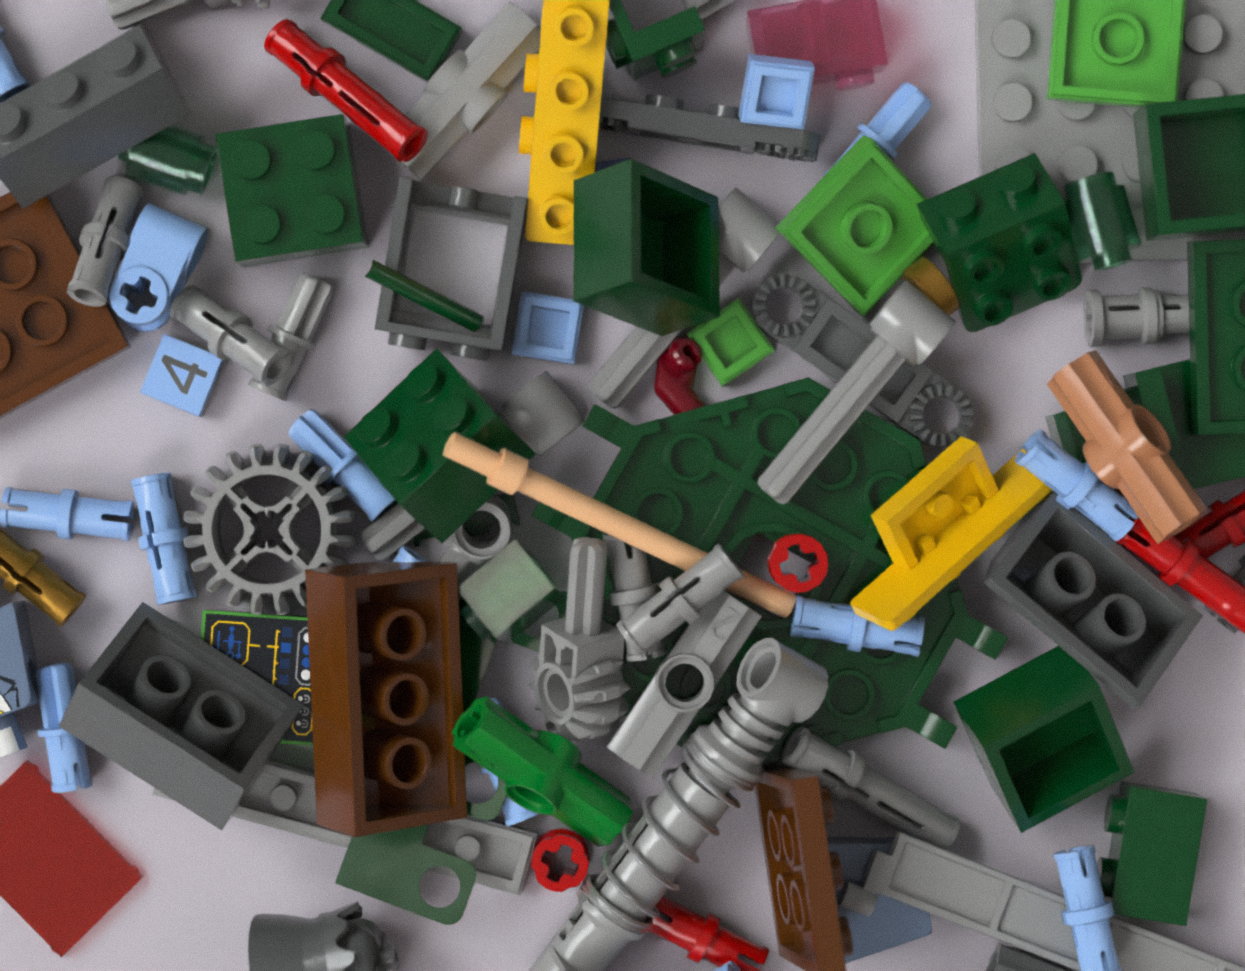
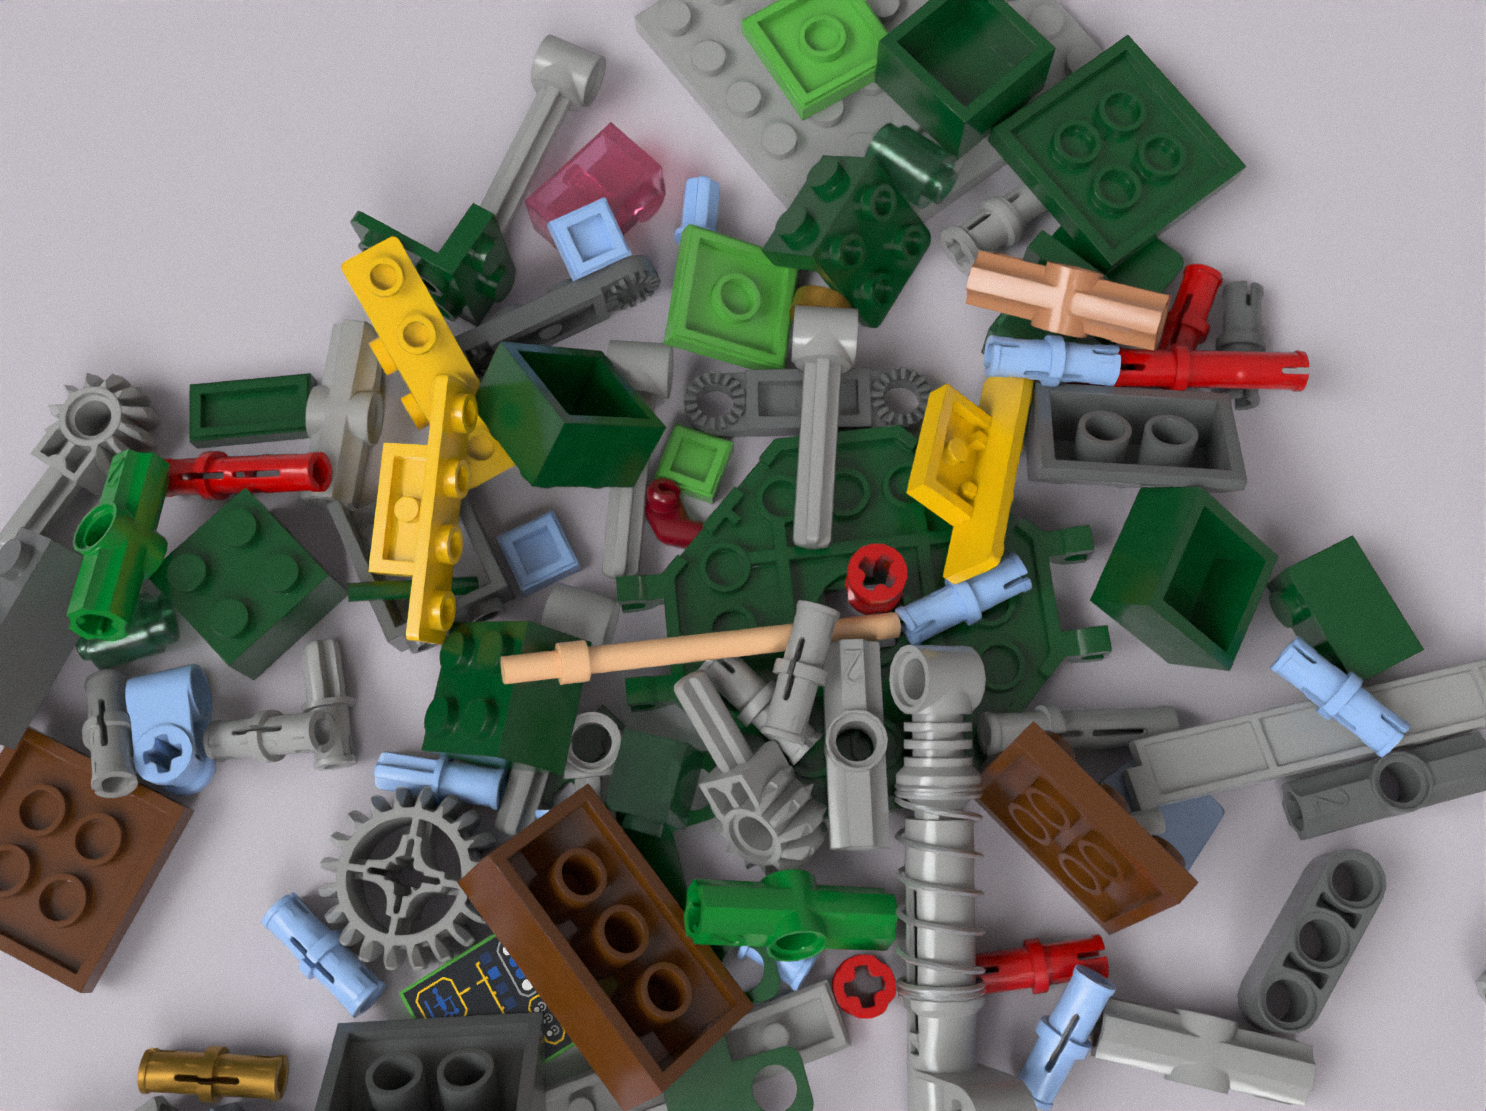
camera: 30 degrees left, 15 degrees down
(67, 514) = (223, 994): light blue pin -> none
(182, 375) = (254, 803): light blue tile -> none
(212, 99) = (119, 546): none -> green piece
(471, 243) = (420, 510): none -> yellow bracket

